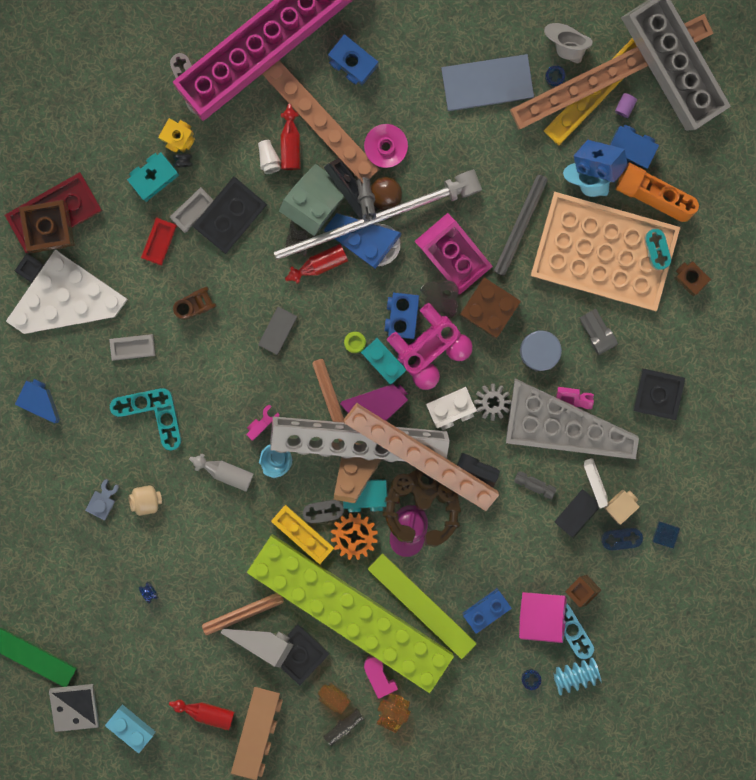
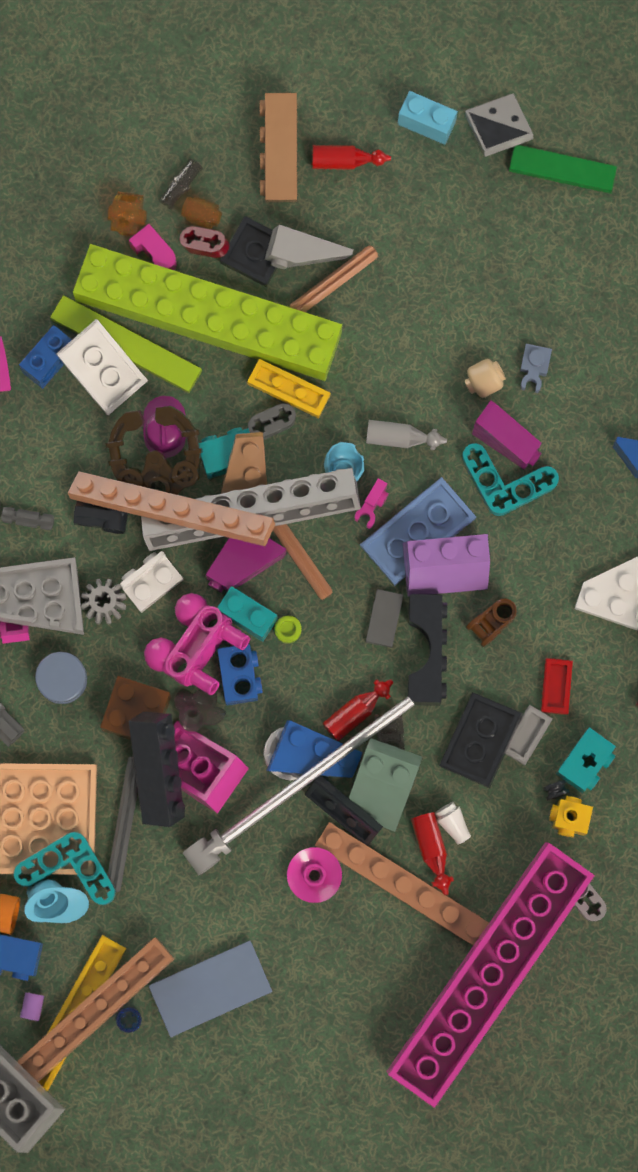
camera: 160 degrees right, 10 degrees down
(132, 347) = (551, 552): light grey tile -> none
(140, 447) = (507, 436): none -> magenta slope
(148, 592) = (450, 275): clear blue bush -> none
(217, 358) = (447, 564): none -> medium lavender slope
(232, 392) = (431, 515): none -> medium blue tile
(259, 269) = (426, 615): none -> black arch
(339, 532) = (217, 401): orange gear -> none
(340, 668) = (202, 246): none -> beam
(347, 48) = (401, 971): blue brick -> none
(366, 199) = (320, 800): dark grey pin -> none
(386, 192) = (299, 818): reddish brown hair -> none
(446, 590) = (101, 367): none -> white tile
(485, 255) = (157, 769): none -> black brick
(564, 205) = (76, 860): none -> teal beam
(568, 41) = (123, 1067): light grey piece -> none
(600, 160) = (45, 924): blue brick -> none

